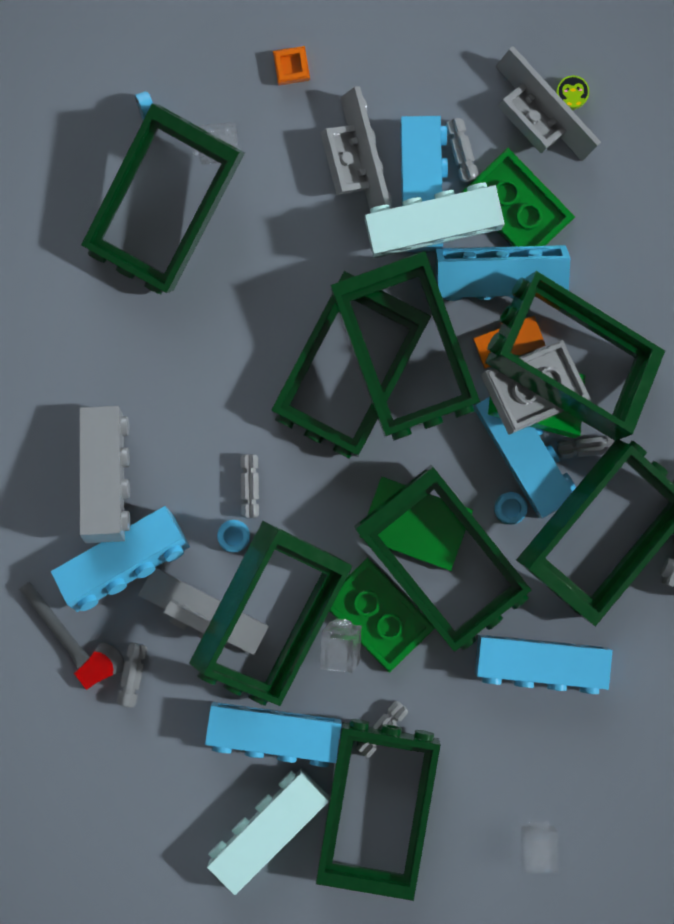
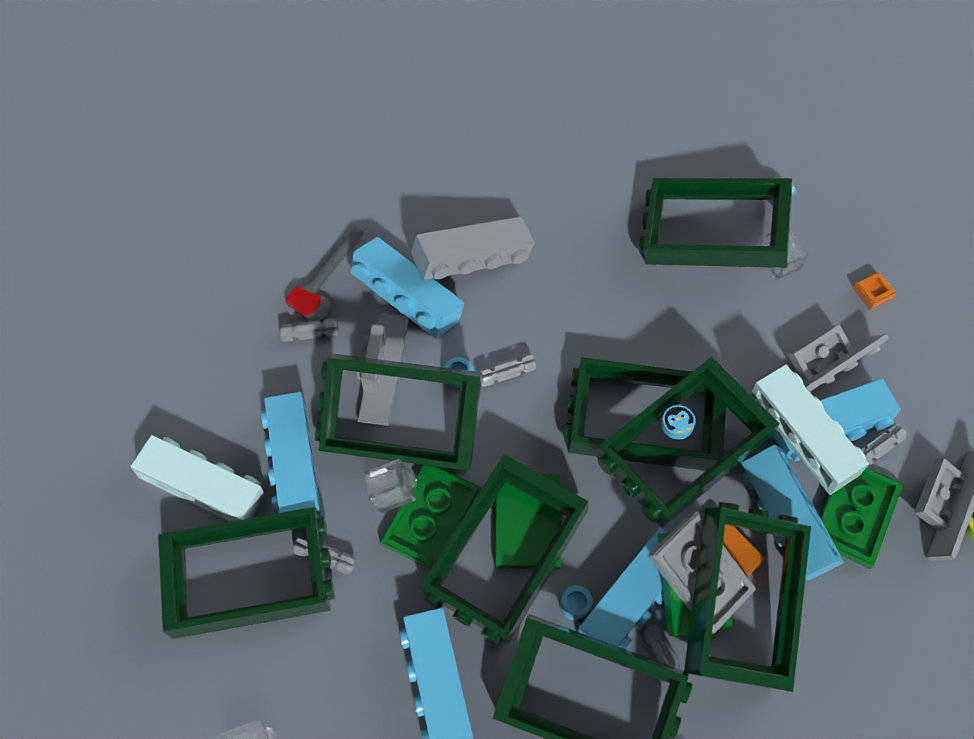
camera: 70 degrees right, 25 degrees down
(390, 350) = (678, 422): none -> medium azure tile

